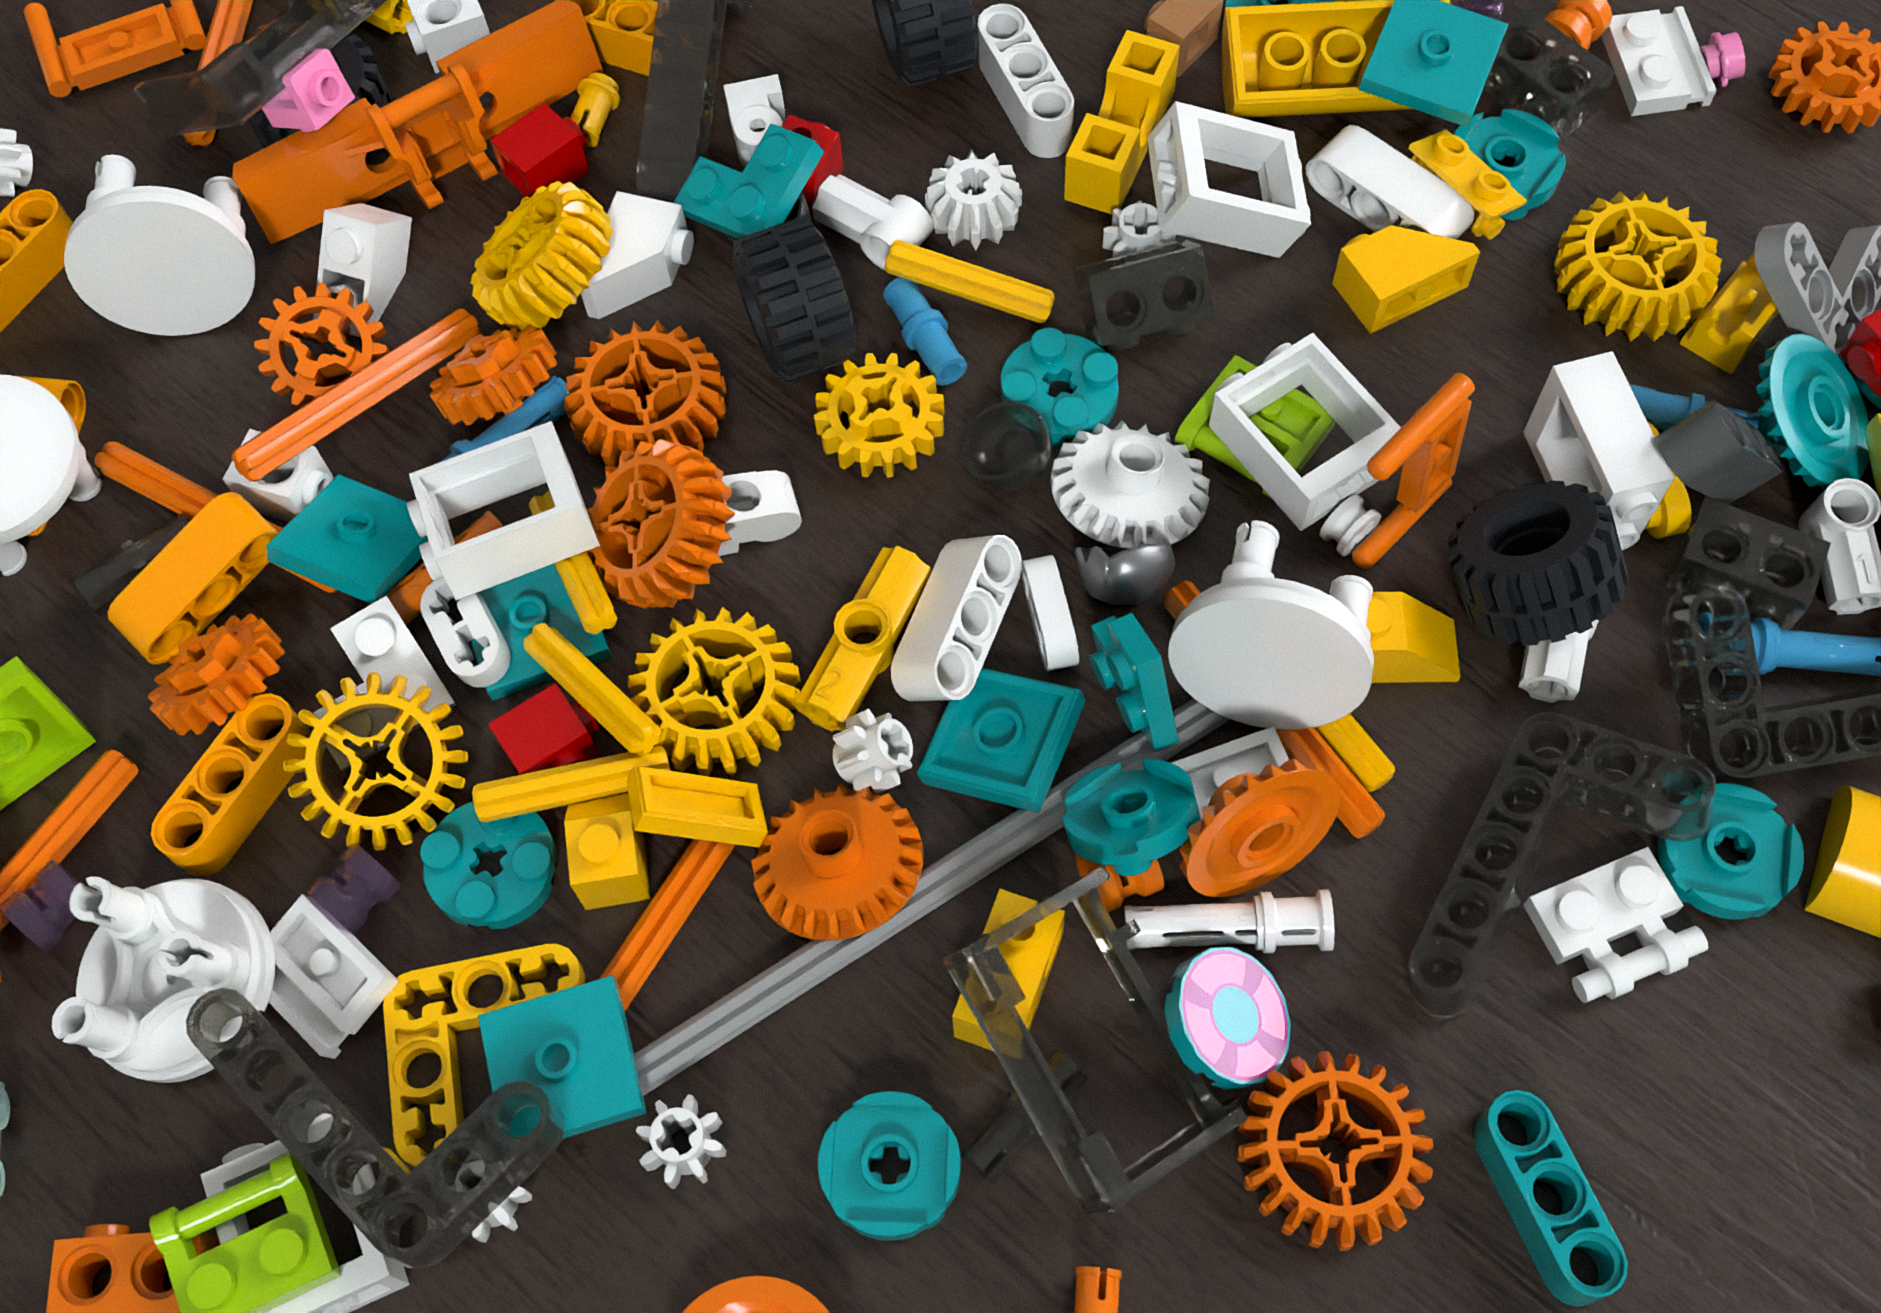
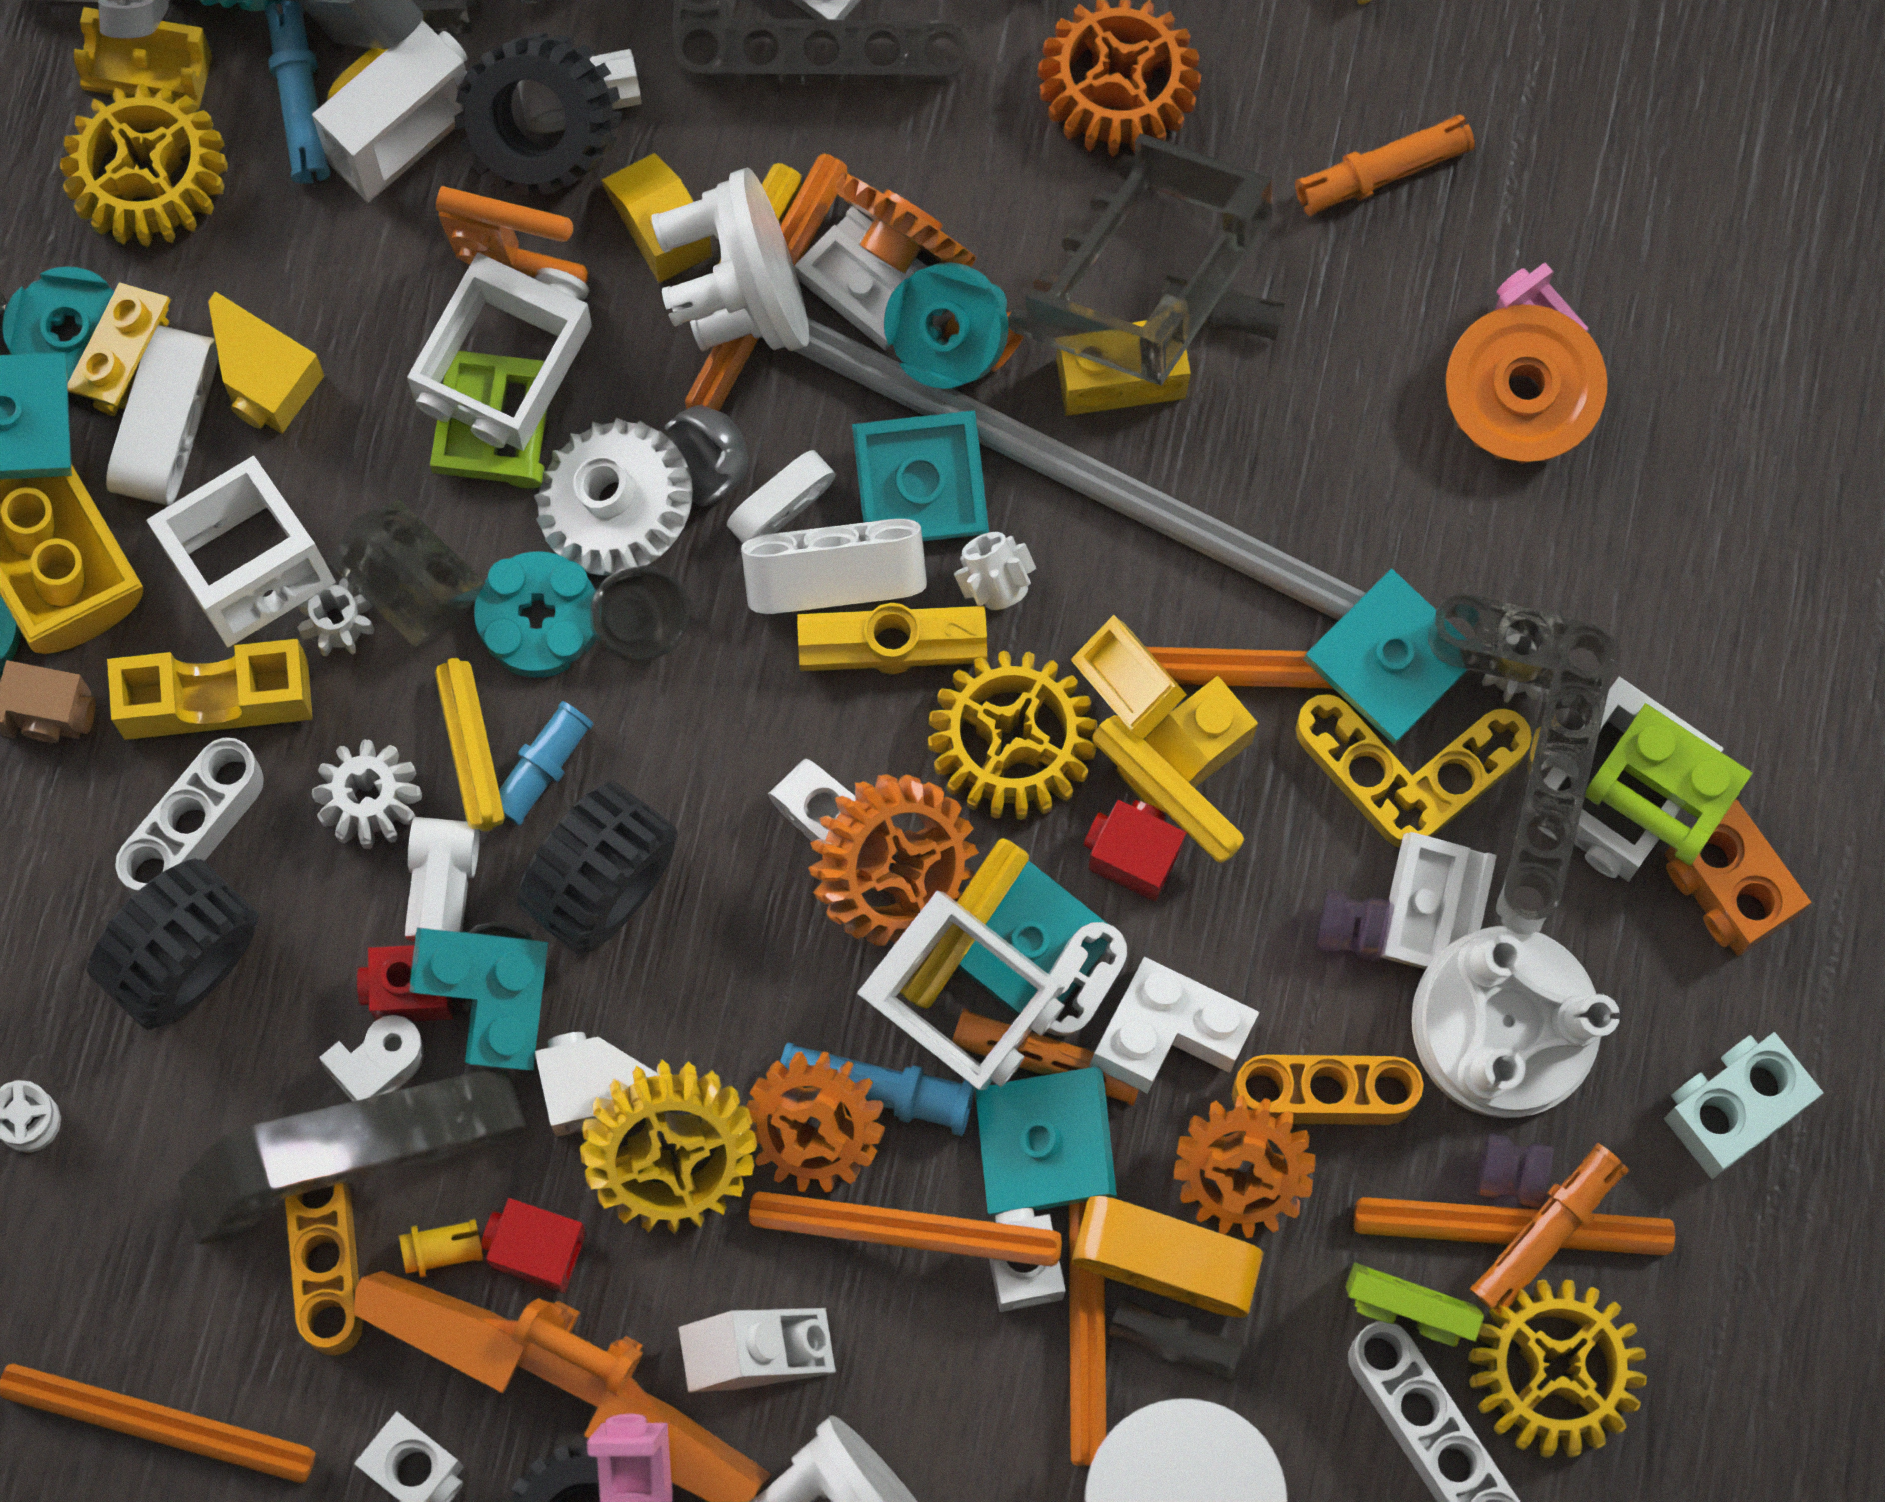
camera: 125 degrees left, 10 degrees up
(328, 730) = (1225, 986): yellow gear -> none
(330, 325) = (868, 1315): orange gear -> none
(481, 899) = (1294, 820): teal plate -> none
(592, 689) = (1077, 821): yellow axle -> none
(611, 385) = (774, 954): orange gear -> none
(663, 1145) = (1399, 523): white gear -> none
(843, 891) = (1145, 562): orange gear -> none
(879, 415) = (684, 750): yellow gear -> none
(917, 1197) = (1328, 351): teal plate -> none
(1136, 671) = (830, 365): teal plate -> none
(1228, 1018) = (1064, 188): tile -> none
(1262, 922) = (967, 205): white pin -> none

